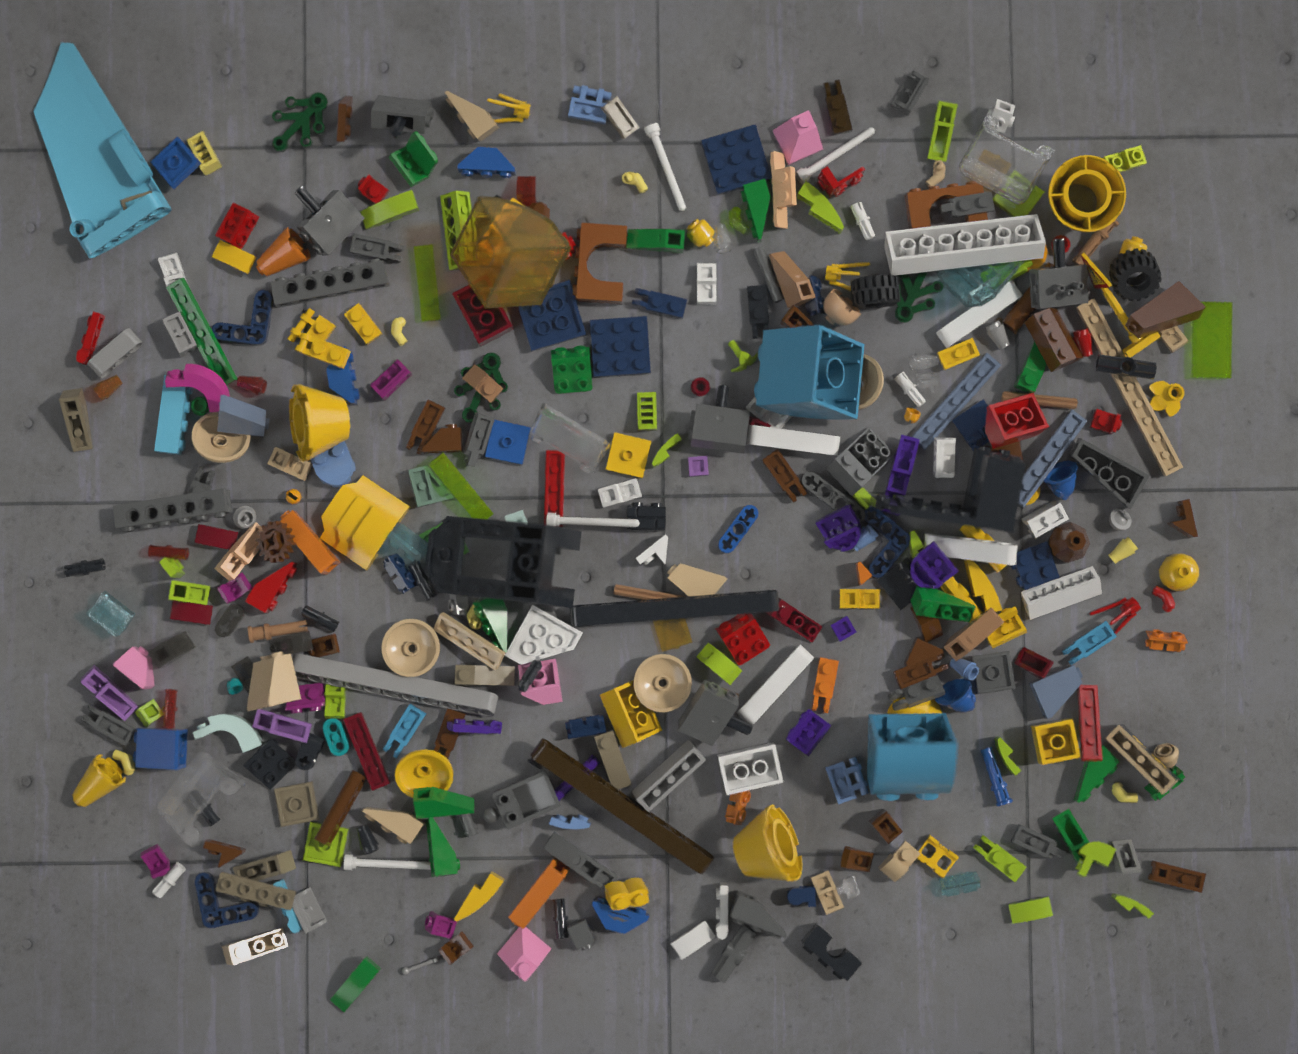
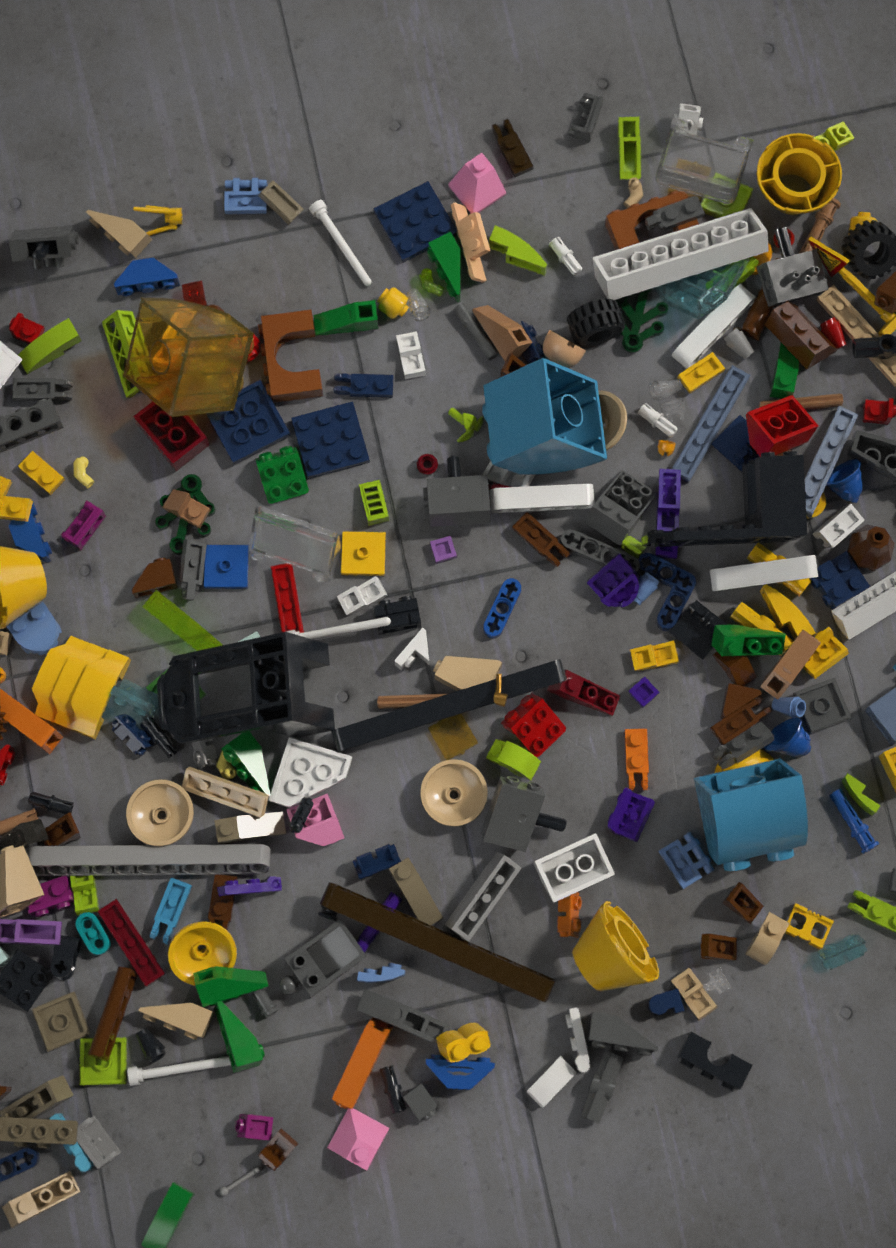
camera: 10 degrees left, 10 degrees down
(415, 160) = (68, 287): green bracket -> none
(426, 424) = (131, 565): reddish brown hinge -> none
(427, 283) = (104, 416): clear neon green tile -> none
(427, 487) = (145, 633): sand green wing -> none
(479, 896) = (293, 1084): yellow slope -> none
(628, 715) = (423, 838): yellow slope -> none
(635, 179) = (310, 263): light yellow arm -> none
(662, 454) = (401, 543): lime slope -> none
(718, 614) = (499, 698): none -> pearl gold hand
(758, 308) = (472, 368): black hinge -> none
(775, 685) = (581, 770): white beam -> none
(806, 173) = (494, 219): white piece -> none
(828, 182) = (529, 225): red bracket -> none
(834, 273) = (547, 314): yellow plant -> none
(862, 573) = (651, 626): orange slope -> none
(915, 543) = (702, 585): lime slope -> none
(932, 567) = (726, 601): dark purple slope -> none
(944, 457) = (711, 483): white hinge -> none
(1033, 663) = (865, 685): dark red slope -> none

